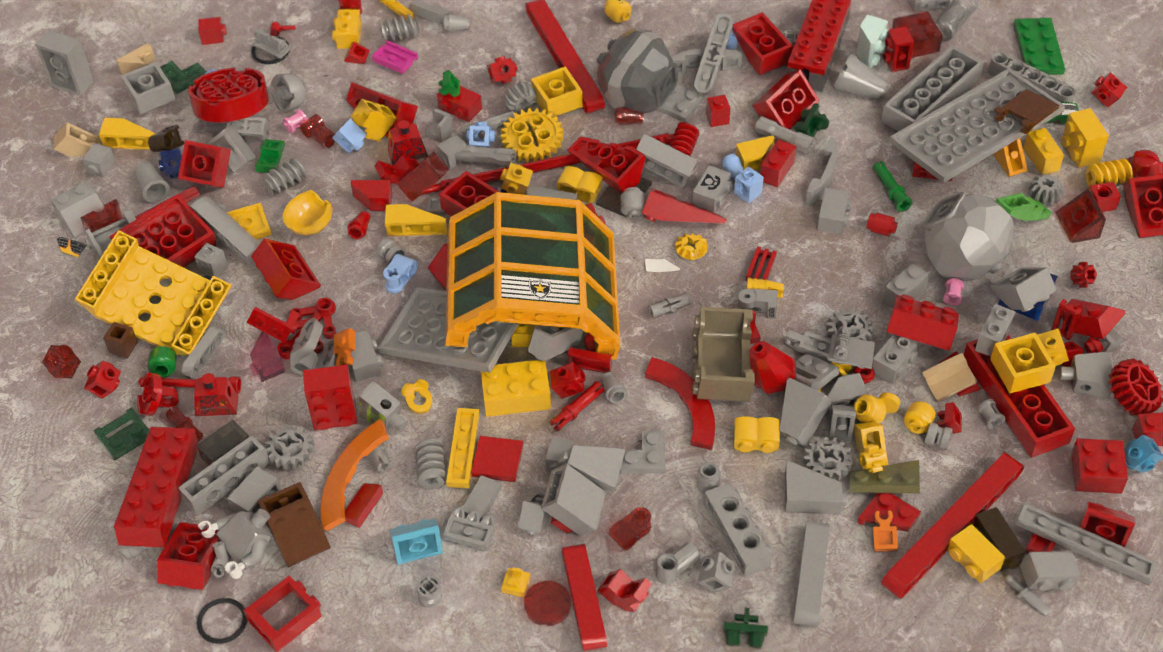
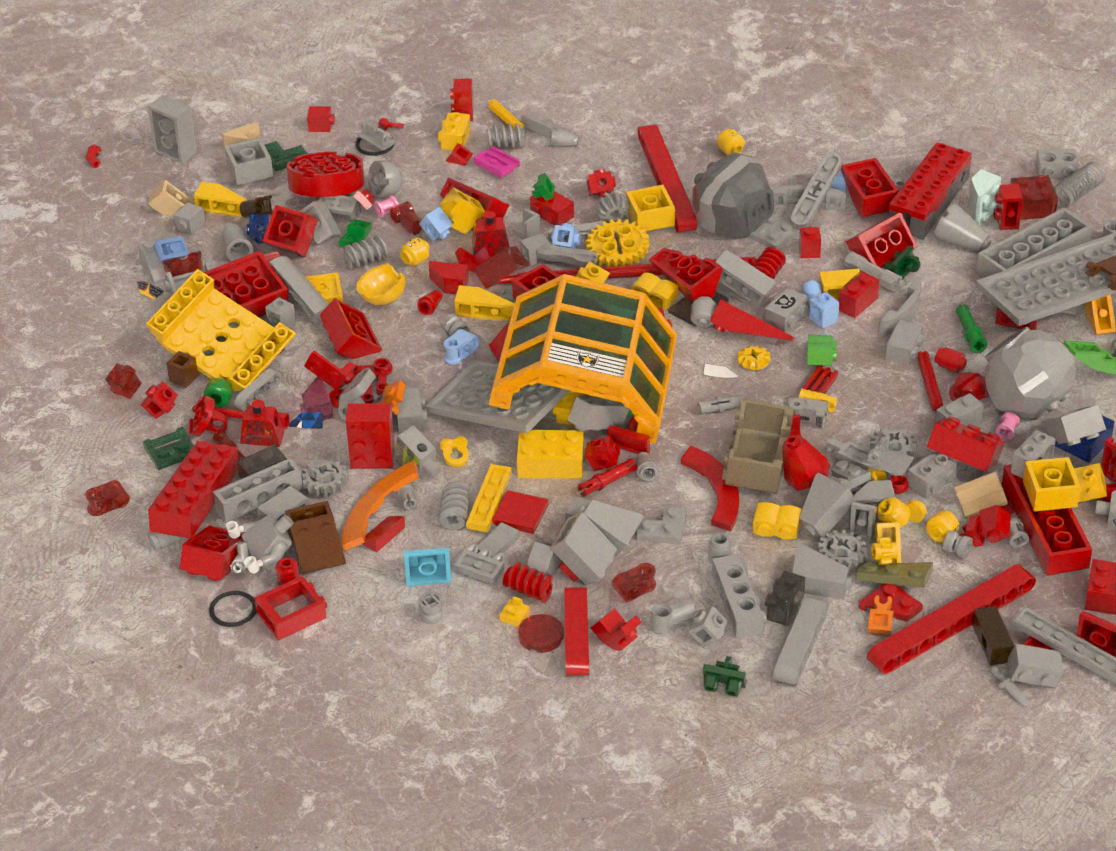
camera: 10 degrees right, 10 degrees down
(67, 504) = (107, 497): none -> clear red piece
(86, 202) = (170, 249): none -> medium blue slope
(260, 380) = (308, 420): none -> dark blue sticker
(272, 571) = (286, 570): none -> red brick
(273, 116) = (365, 197): none -> plate
(333, 169) = (414, 251): none -> yellow head
(524, 545) = (528, 583): none -> red piece
(627, 116) = (718, 238): clear red cone -> none
(756, 231) = (821, 350): none -> bright green brick
(786, 525) = (785, 598): none -> clear smoke brick
(866, 250) = (929, 380): none -> red axle
(905, 252) = (969, 383): none -> red piece
(970, 409) = (994, 523): none -> red brick
(975, 554) = (965, 643): yellow brick -> none

